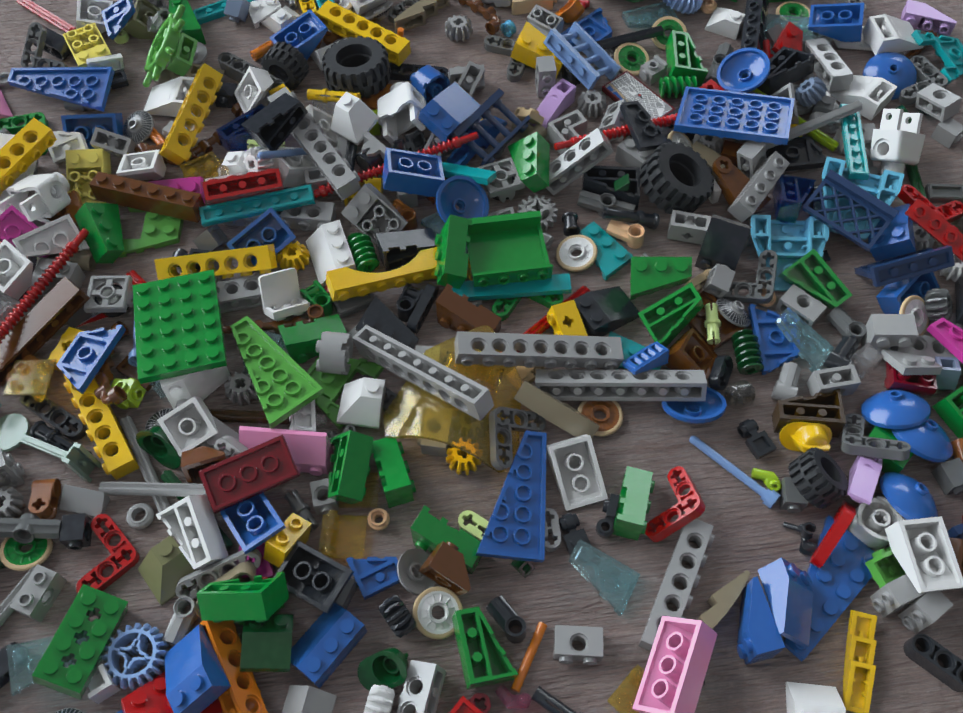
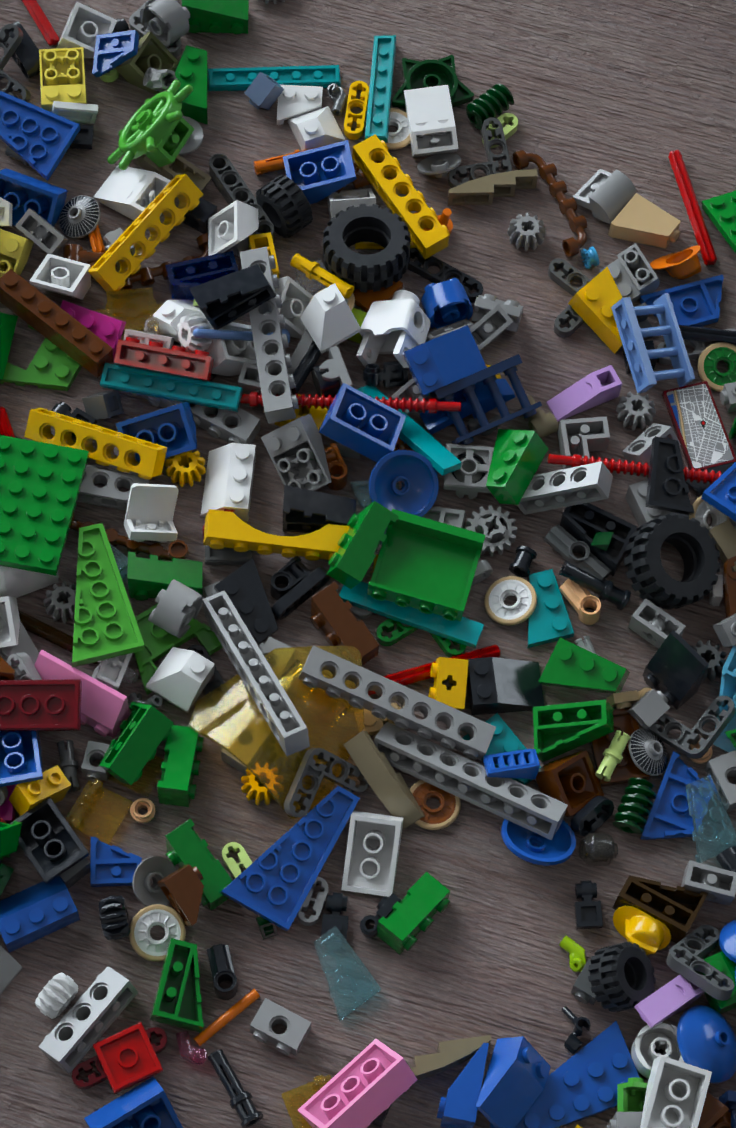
camera: 20 degrees right, 5 degrees up
(317, 295) = (189, 528): green piece -> none
(363, 252) = (264, 496): green piece -> none
(383, 668) = (78, 961): dark green piece -> none
(535, 118) = (543, 392): tan plate -> none
(545, 75) = (594, 350): light grey brick -> none
(685, 504) = (463, 945): red beam -> none
(701, 534) = (456, 970): light grey brick -> none
(768, 496) = (563, 973): medium blue piece -> none
(786, 384) = (656, 864): light grey piece -> none
(842, 520) = (617, 1029): red beam -> none

